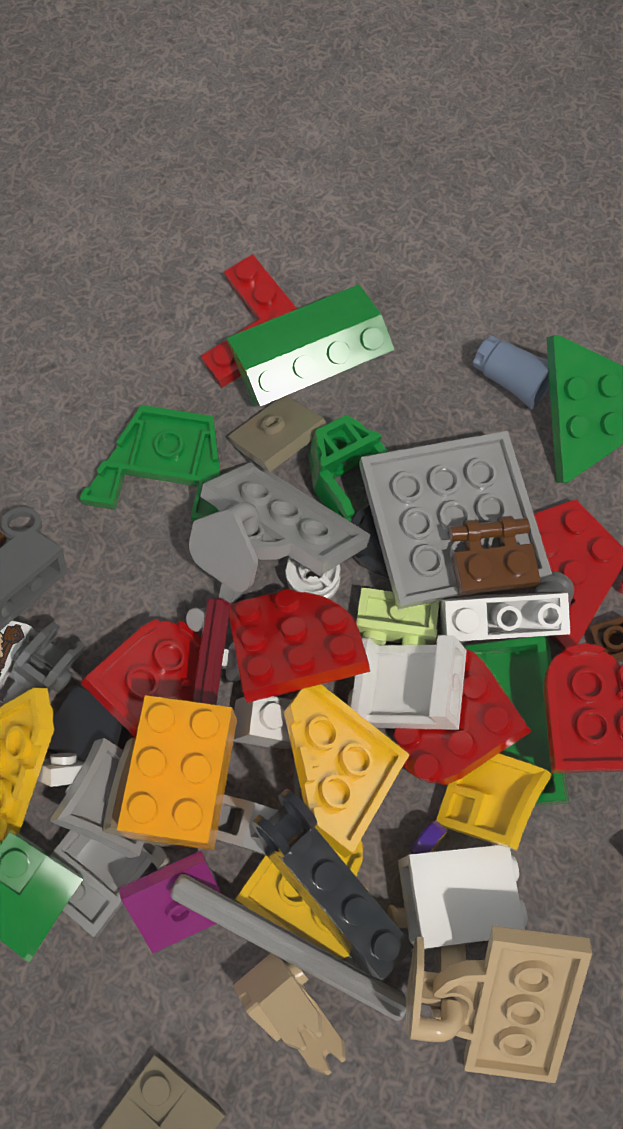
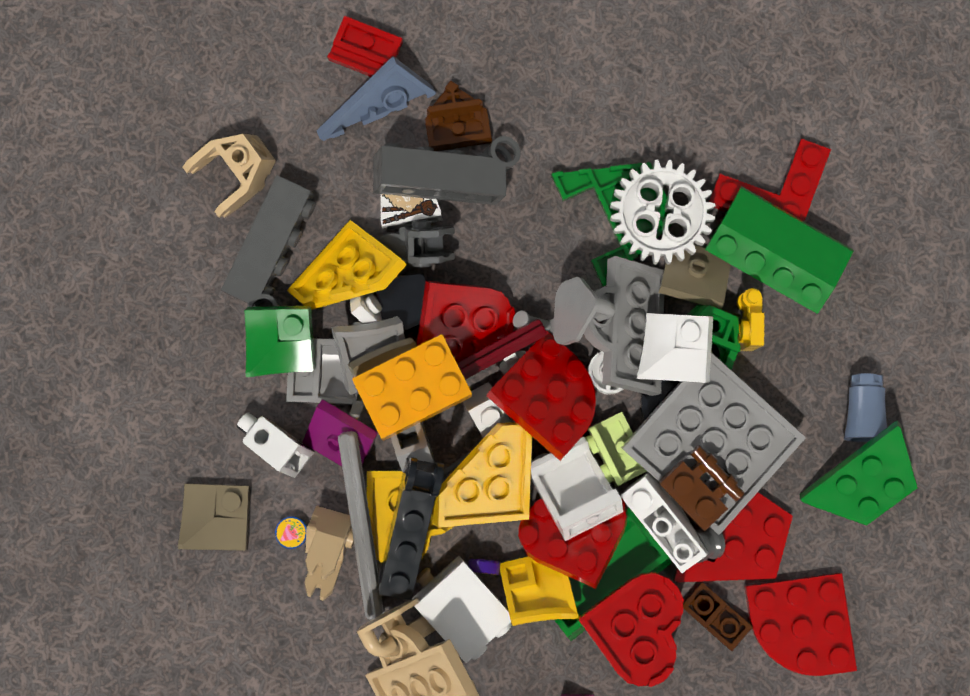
camera: 55 degrees right, 15 degrees up
(128, 985) = (274, 444): none -> white torso
(218, 398) = (634, 207): none -> white gear
(242, 1041) = (291, 532): none -> tile
(335, 483) = (676, 348): none -> white plate
(359, 403) = (752, 322): none -> yellow plate

